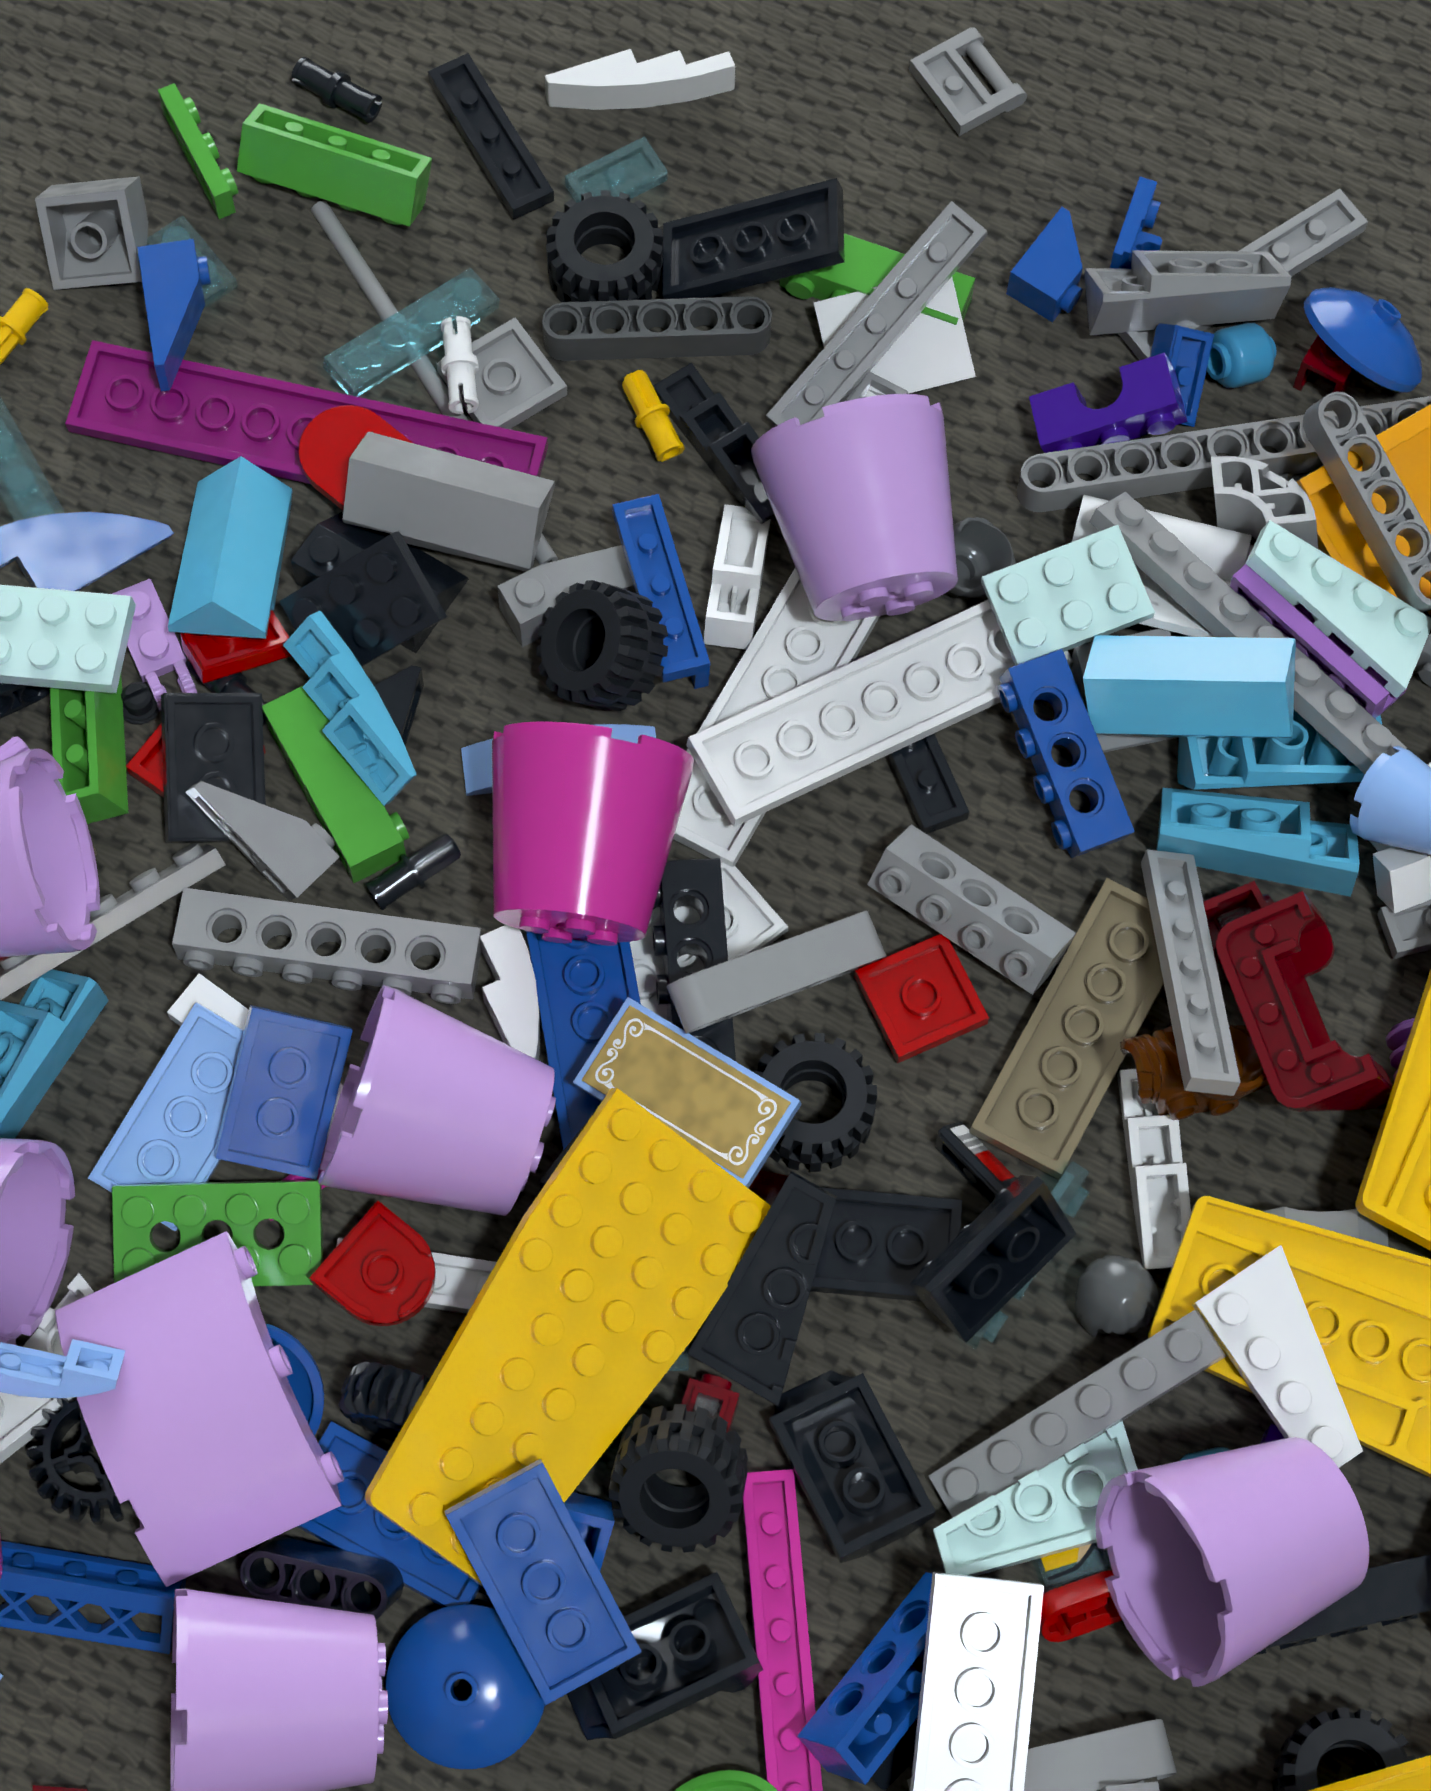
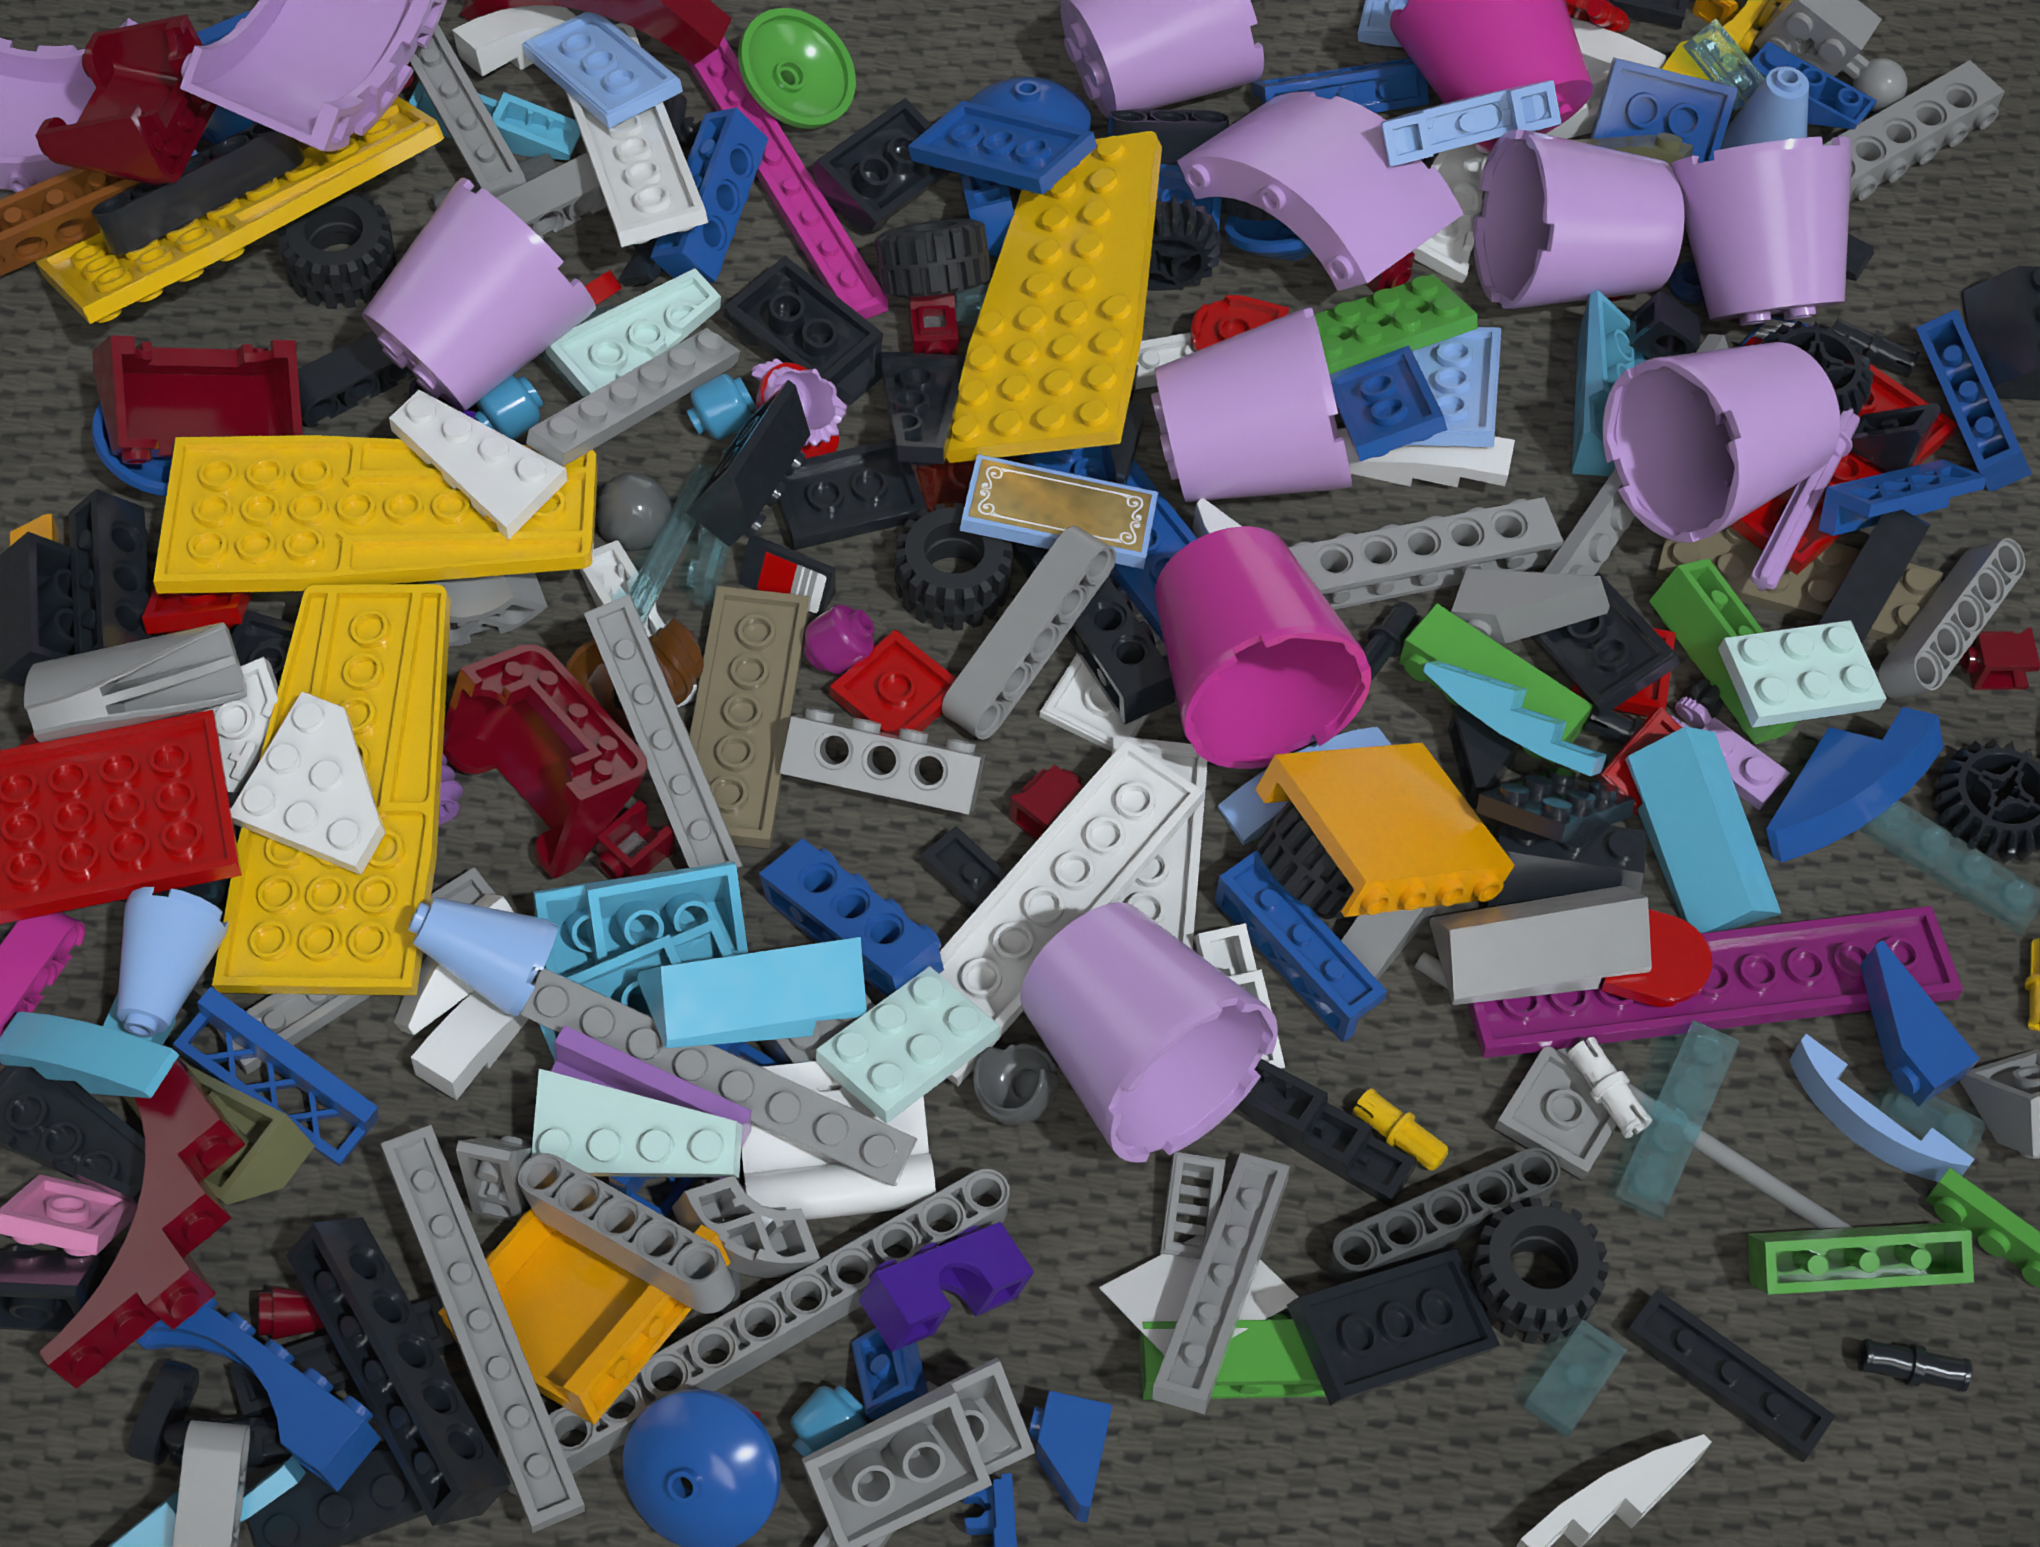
camera: 155 degrees right, 10 degrees down
(223, 232) = (1868, 1126): none -> light blue slope
(535, 635) = (1391, 826): none -> light orange panel
(826, 819) = (1043, 800): none -> dark red window
(900, 1352) = (818, 399): none -> lavender hair
(961, 1060) = (839, 639): none -> magenta head
(977, 1399) = (720, 406): none -> dark azure head
(1095, 1233) = (667, 545): none -> clear light blue axle

